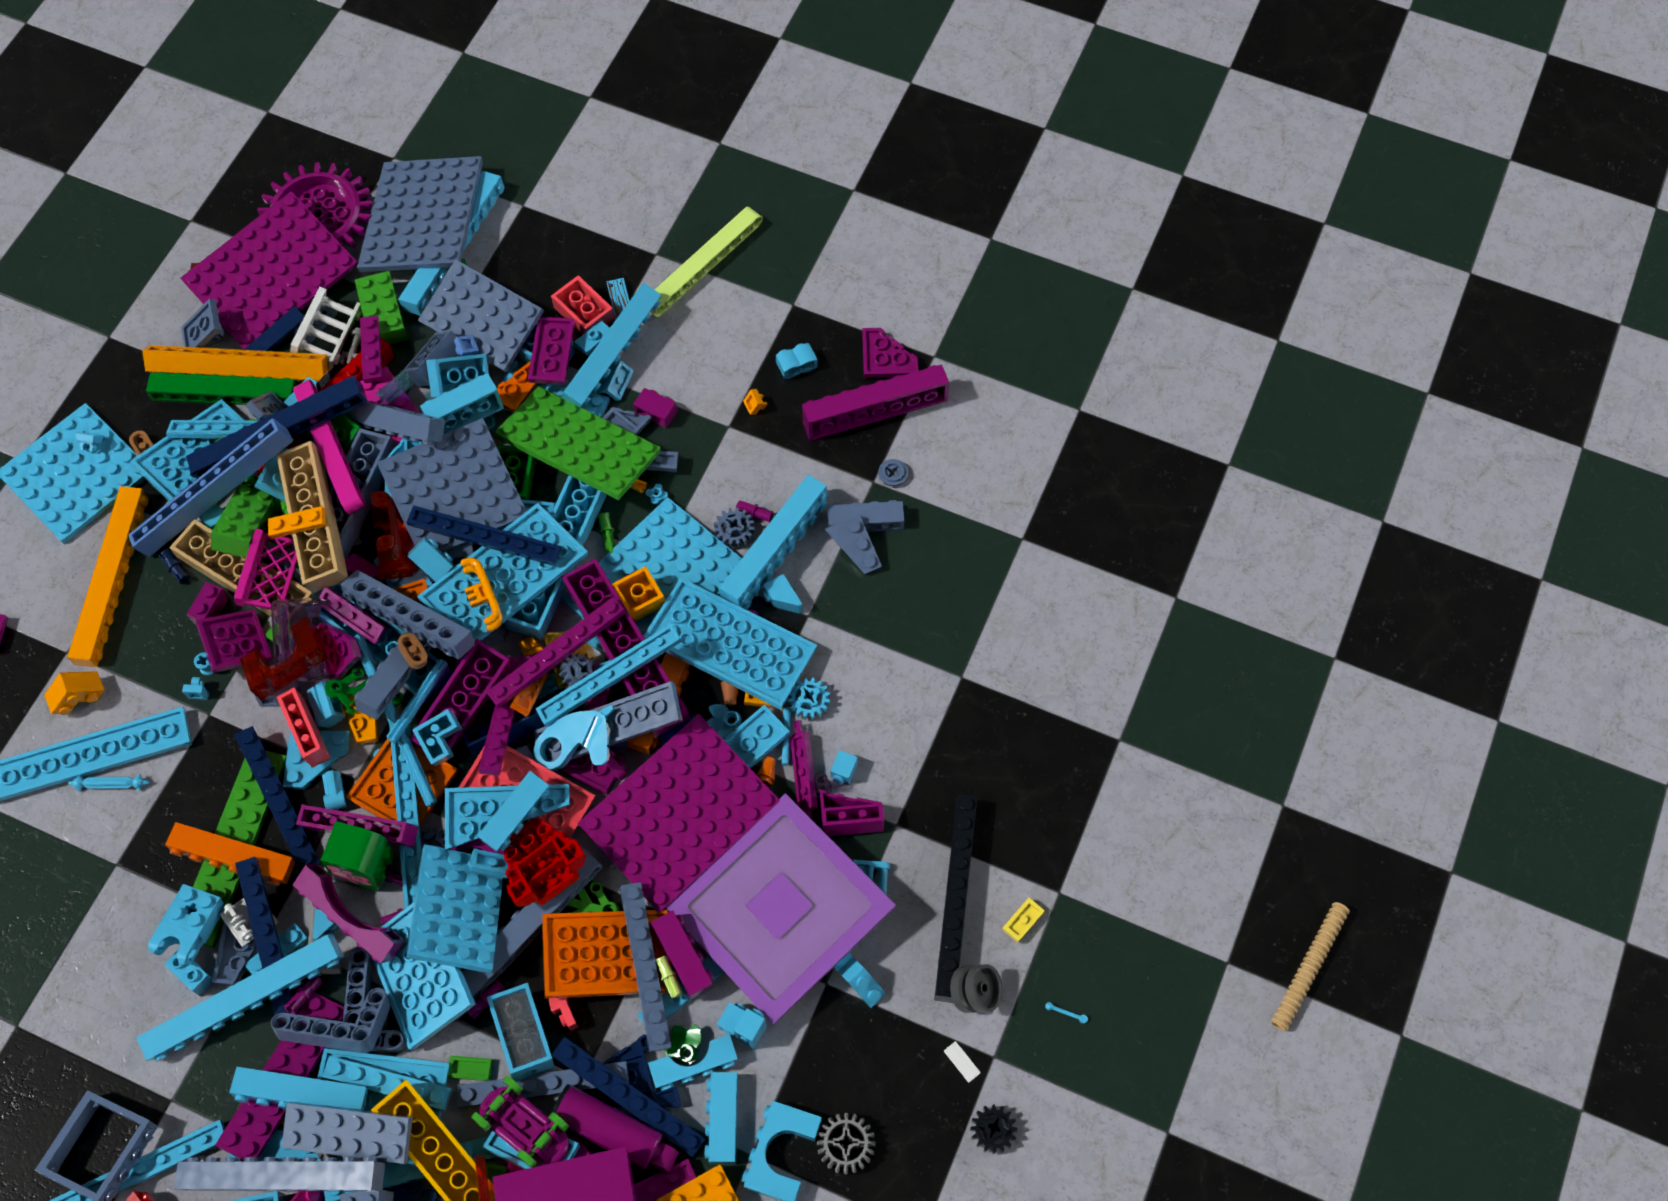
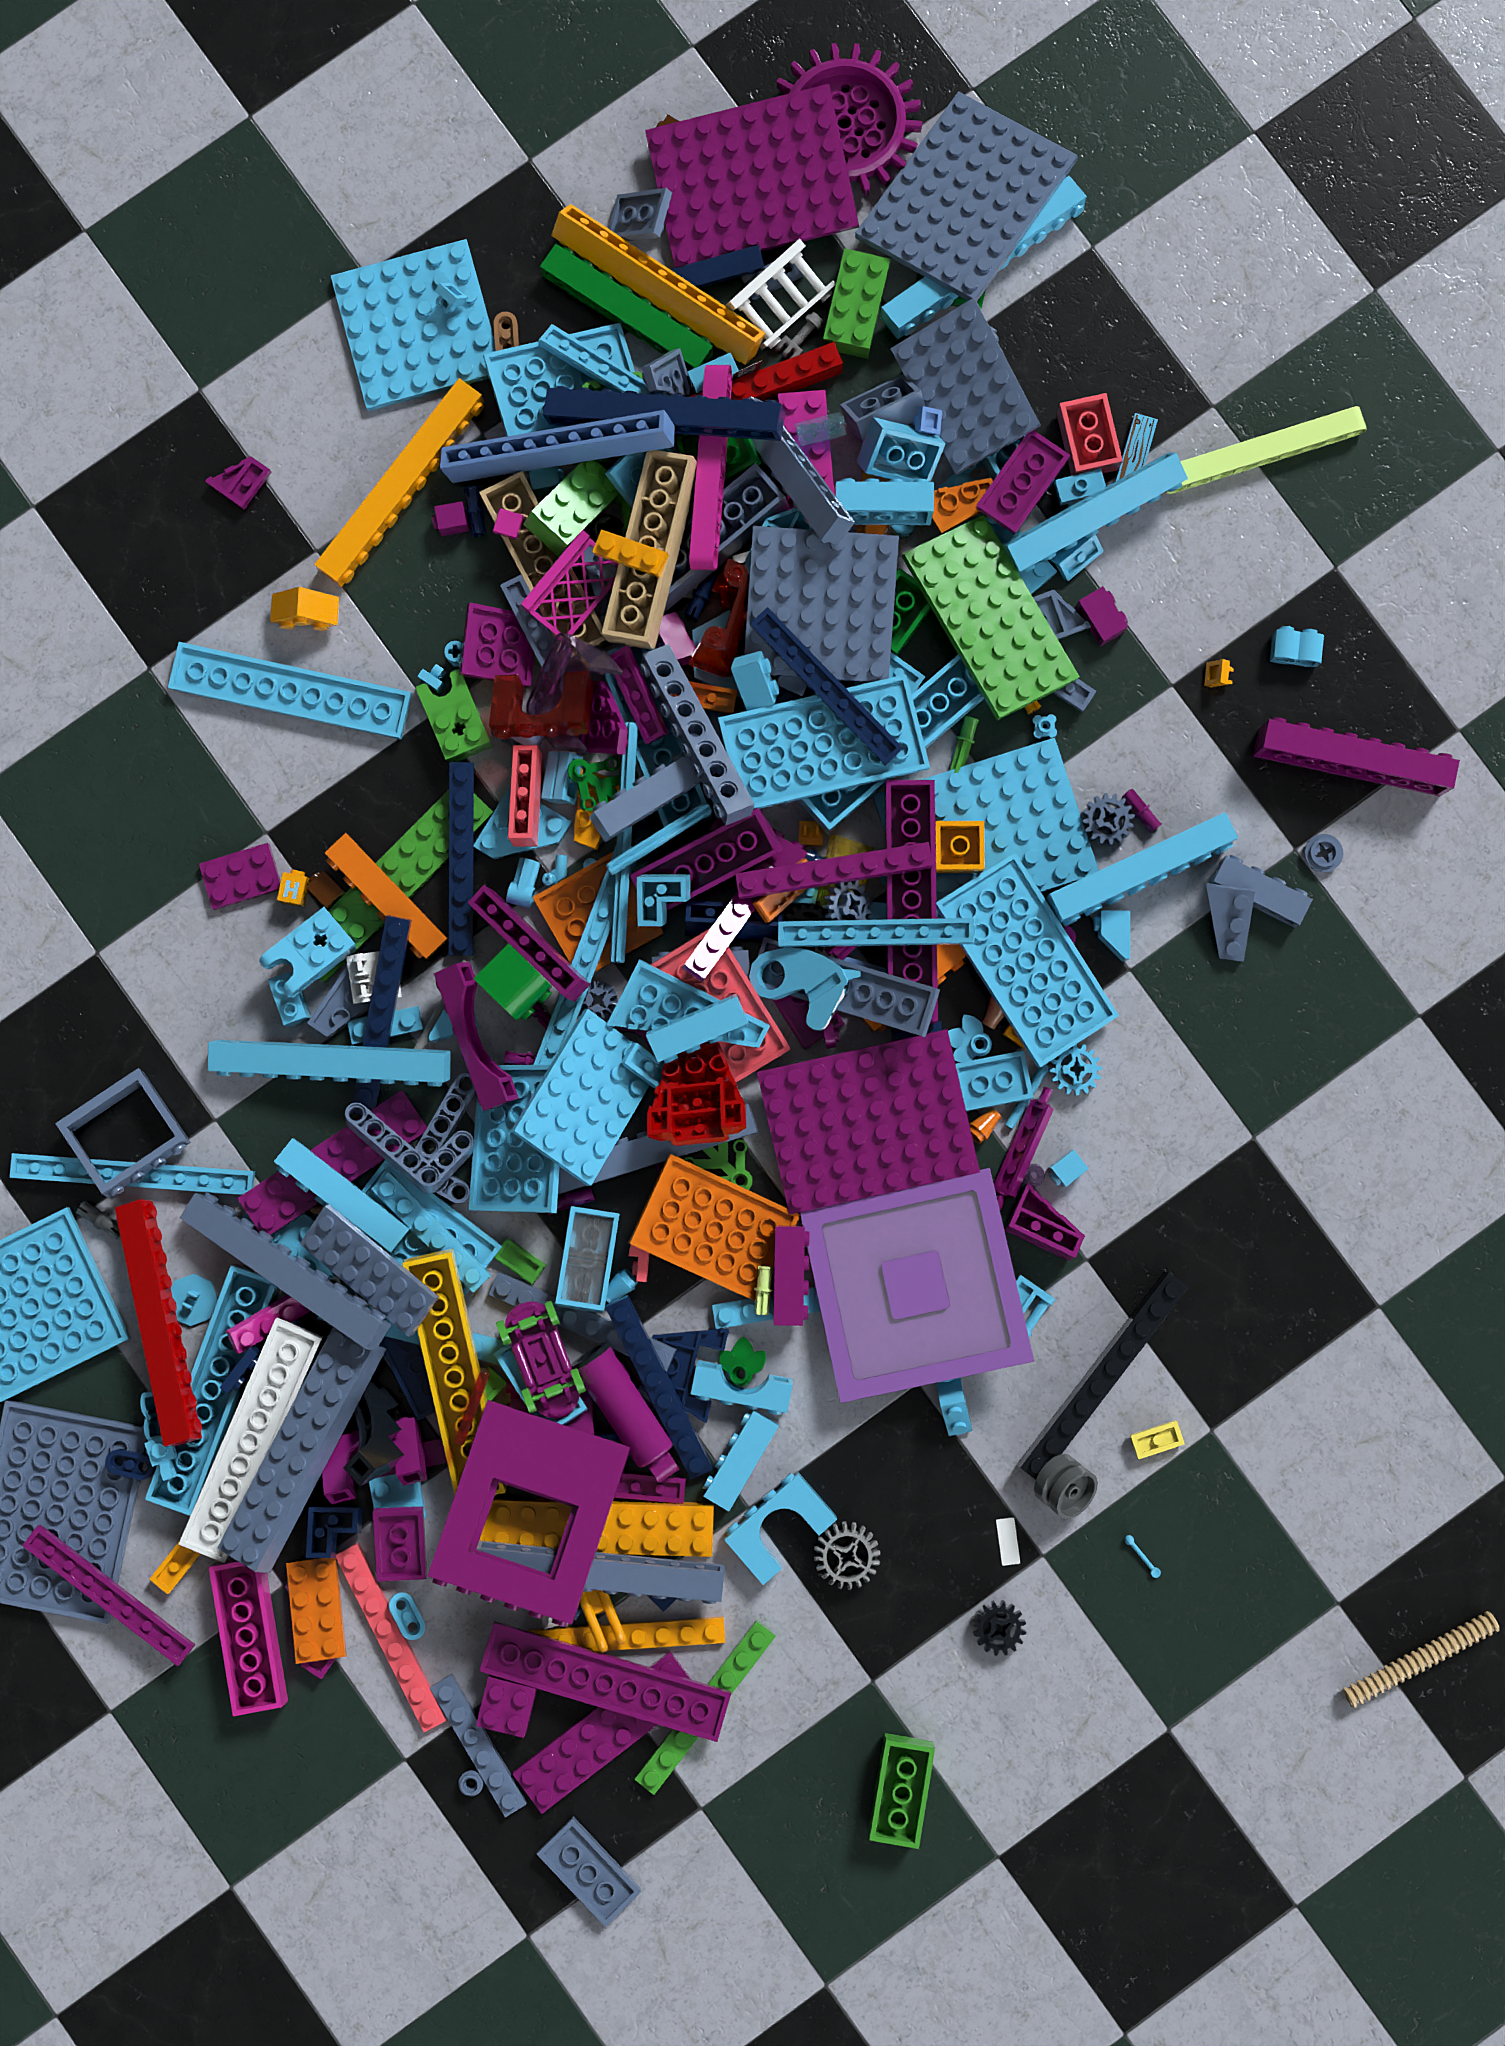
camera: 30 degrees right, 20 degrees up
(108, 782) = (296, 735): medium azure wheel -> none
(109, 906) = (240, 876): none -> magenta plate
(156, 891) = (293, 888): none -> light orange brick
(158, 579) = (450, 519): none -> magenta brick
(179, 875) = (325, 889): none -> reddish brown brick
(200, 555) = (508, 524): none -> dark pink tile
(208, 603) = (485, 586): magenta brick -> none
(226, 707) = (451, 713): none -> bright green brick
(254, 615) = (537, 635): none -> sand blue plate
(303, 995) = (387, 1092): magenta pin -> none
(357, 770) = (557, 874): none -> medium azure arm
(371, 349) = (818, 359): magenta plate -> none
(414, 652) = (681, 786): medium nougat plate -> none
(482, 593) = (790, 758): light orange piece -> none
(556, 1037) = (620, 1285): none -> medium azure cone
(645, 967) = (745, 1266): sand blue plate -> none
(742, 1024) = (810, 1379): medium azure brick -> none
(885, 355) = (1403, 700): magenta plate -> none

